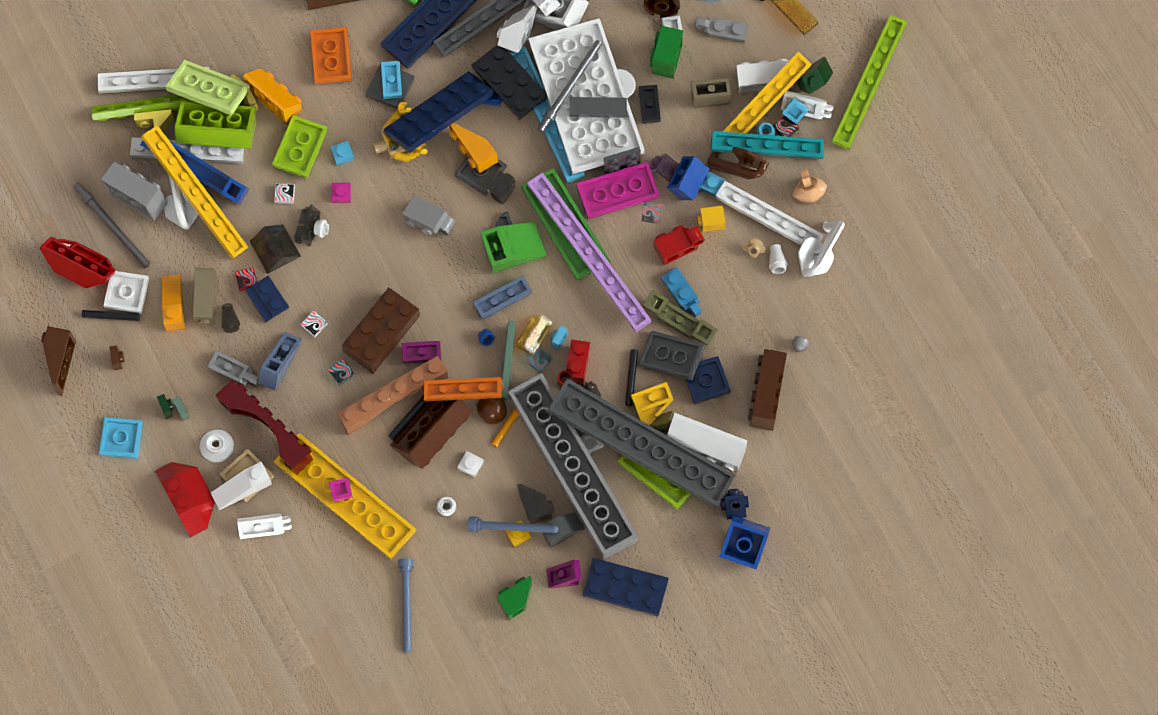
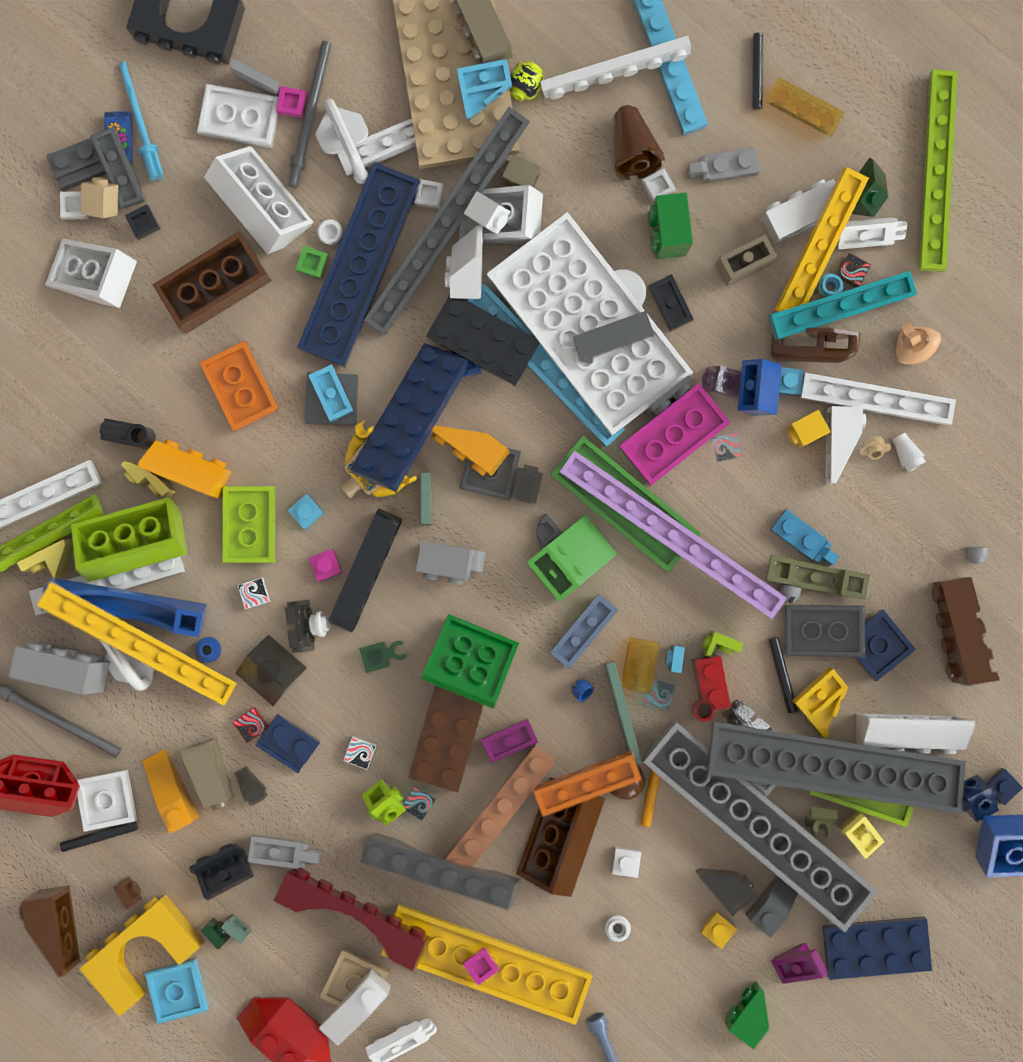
camera: 20 degrees left, 15 degrees up
(81, 398) = (107, 967): none -> yellow arch
(186, 365) = (222, 870): none -> black bracket
(207, 87) = (98, 494): yellowish green plate -> none
(219, 453) = (307, 945): white piece -> none
(240, 223) = (214, 644): none -> blue plate
(241, 58) = (126, 433): none -> black piece
(278, 361) = (335, 819): sand blue slope -> none
(317, 359) = (383, 802): none -> lime brick
(323, 403) = (472, 882): none -> dark grey arch
(353, 263) = (378, 655): none -> clear green plate
(367, 204) = (365, 570): none -> black beam
(407, 419) = (525, 832): black bar -> none
(415, 284) = (470, 661): none -> green plate
(428, 172) = (426, 498): none -> sand green tile
(475, 524) = (665, 940): sand blue piece -> none
(550, 114) = (556, 369): flat silver bar -> none
(597, 338) = (725, 643): none -> lime bracket
(619, 481) = (821, 818): none -> olive tile
(643, 500) = (861, 834): none -> light yellow slope
(658, 322) = (790, 592): none -> light grey hinge
(663, 421) = (846, 719): olive tile -> none
(678, 243) = (777, 478): red hinge -> none
(734, 232) = (845, 429): none -> white slope
(759, 509) = (1005, 786): none -> dark blue plate
(795, 110) = (861, 245): medium azure plate -> none
(817, 257) = (959, 432): white piece -> none

